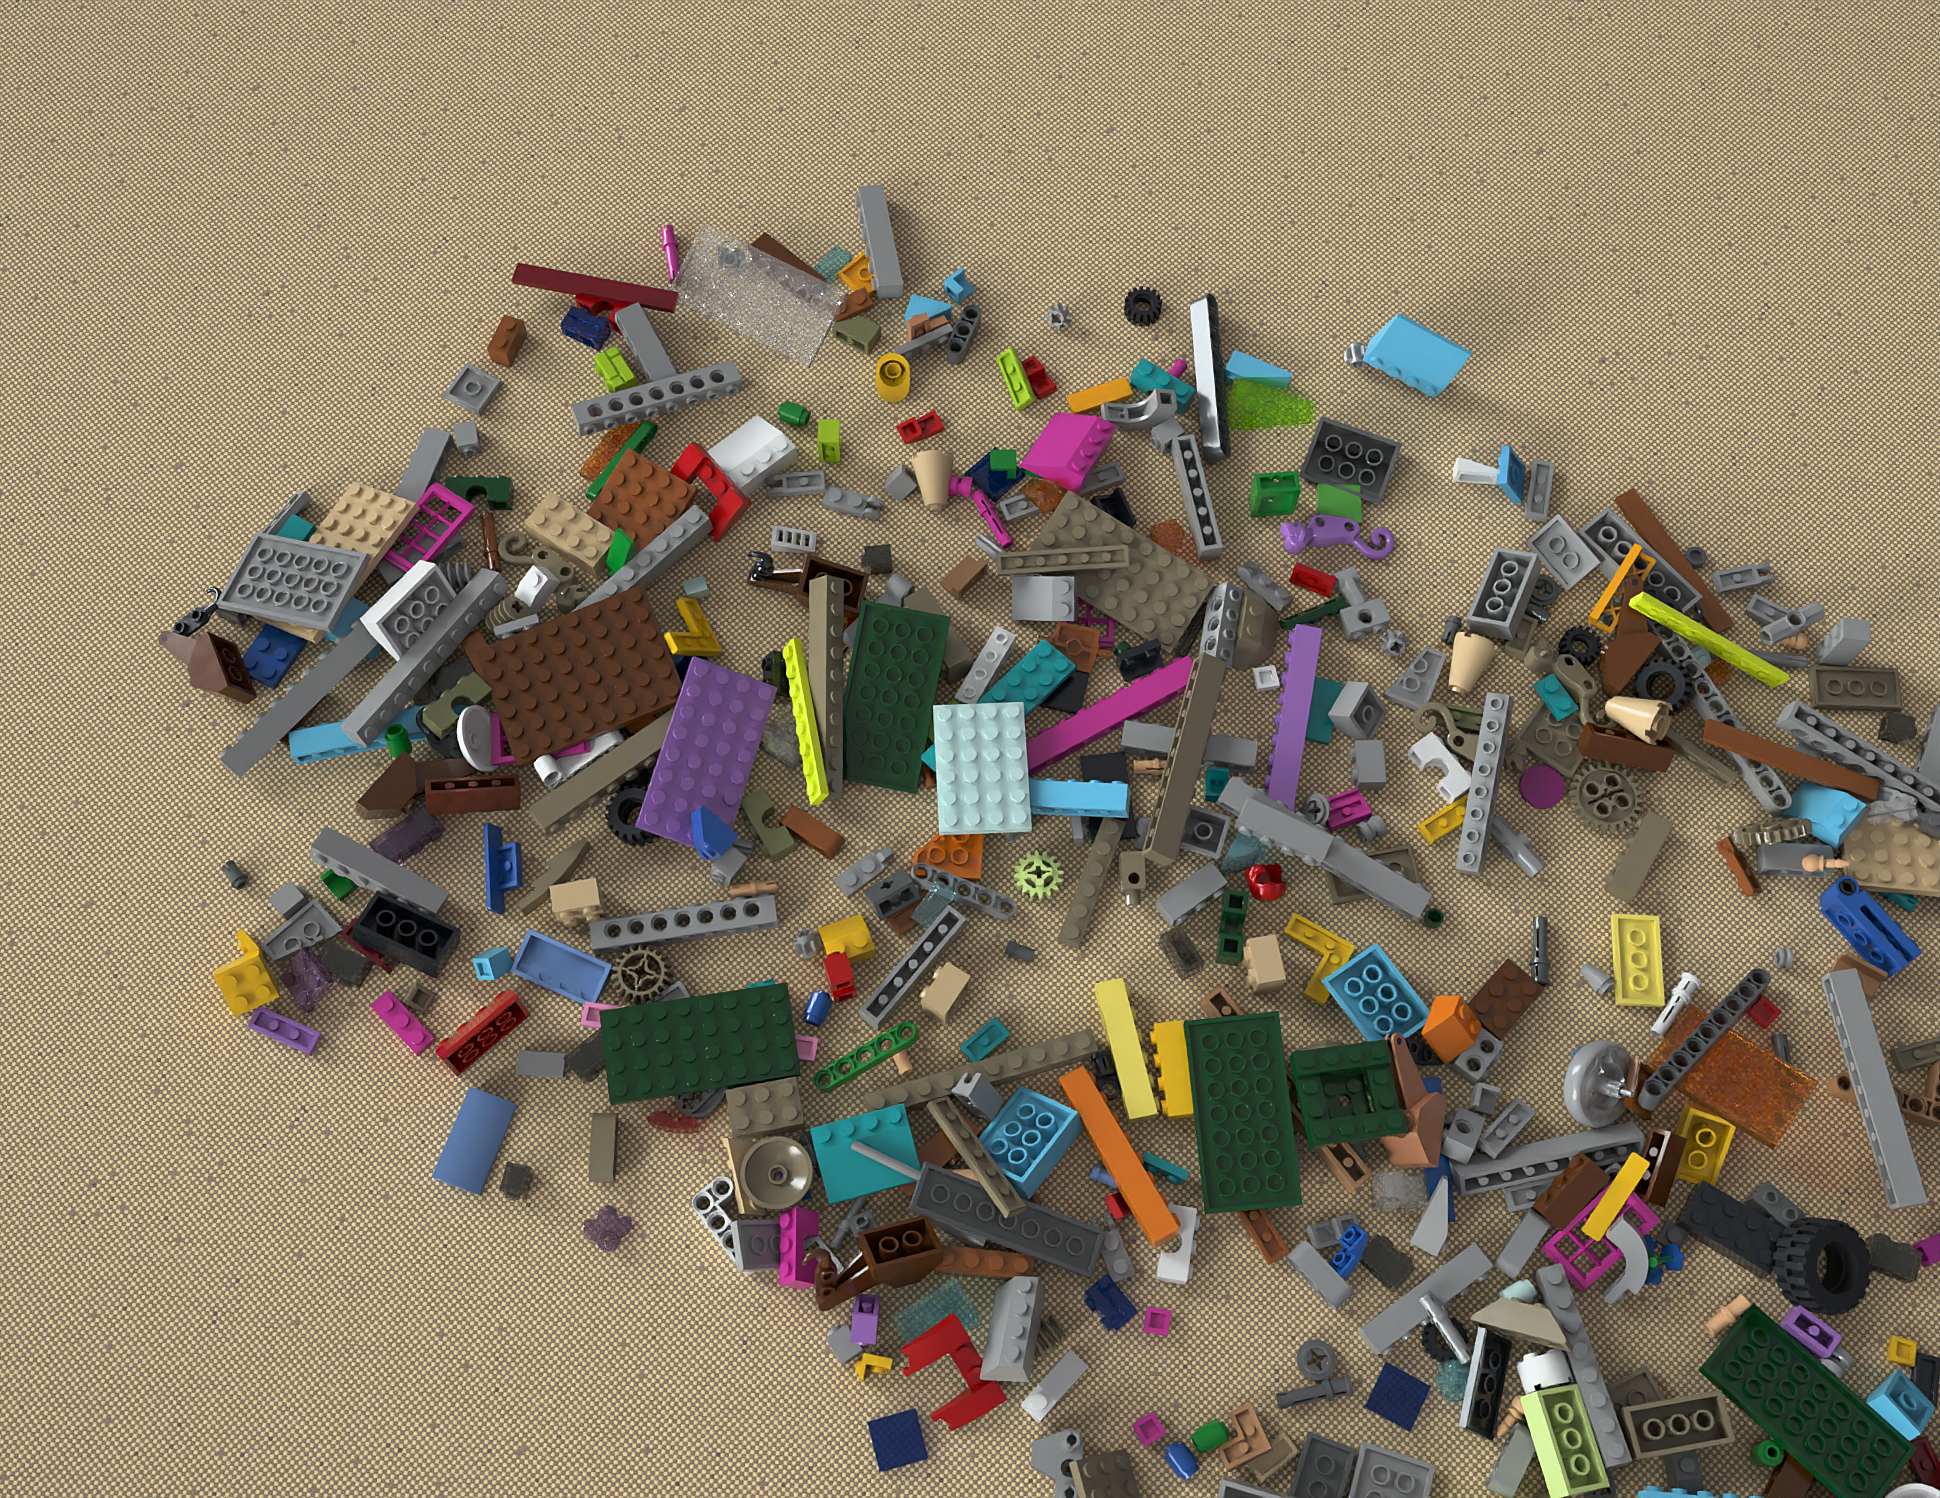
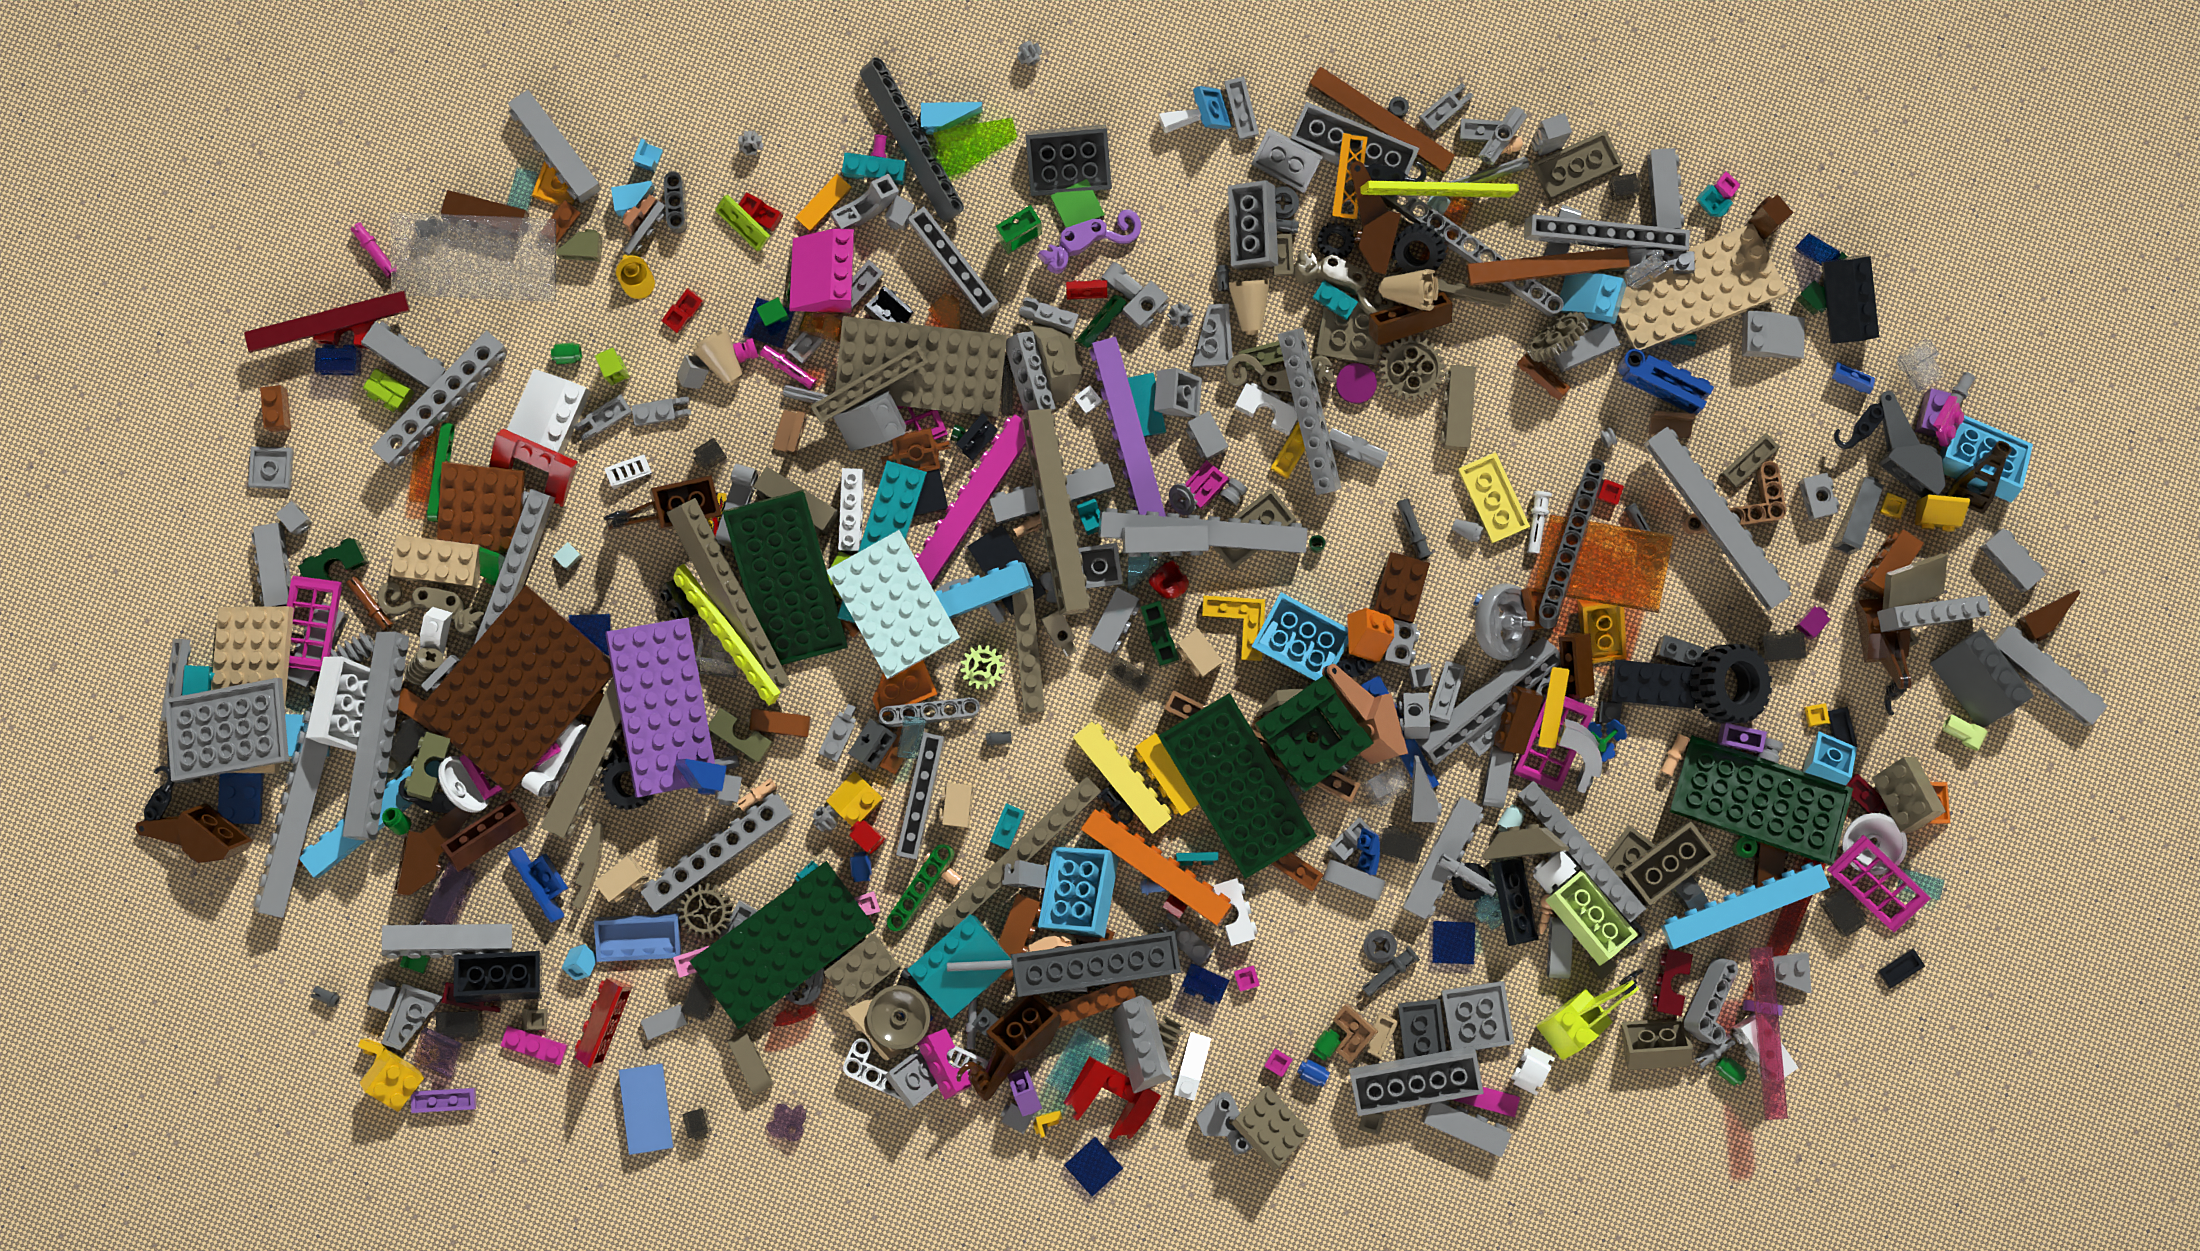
camera: 25 degrees left, 15 degrees up
(699, 639) = (600, 601): yellow plate -> none
(976, 1157) = (1048, 927): dark tan tile -> none
(1140, 316) = (819, 83): black tyre -> none
(1416, 355) = (1081, 38): medium azure slope -> none
(1812, 863) = (1600, 346): light nougat bar -> none

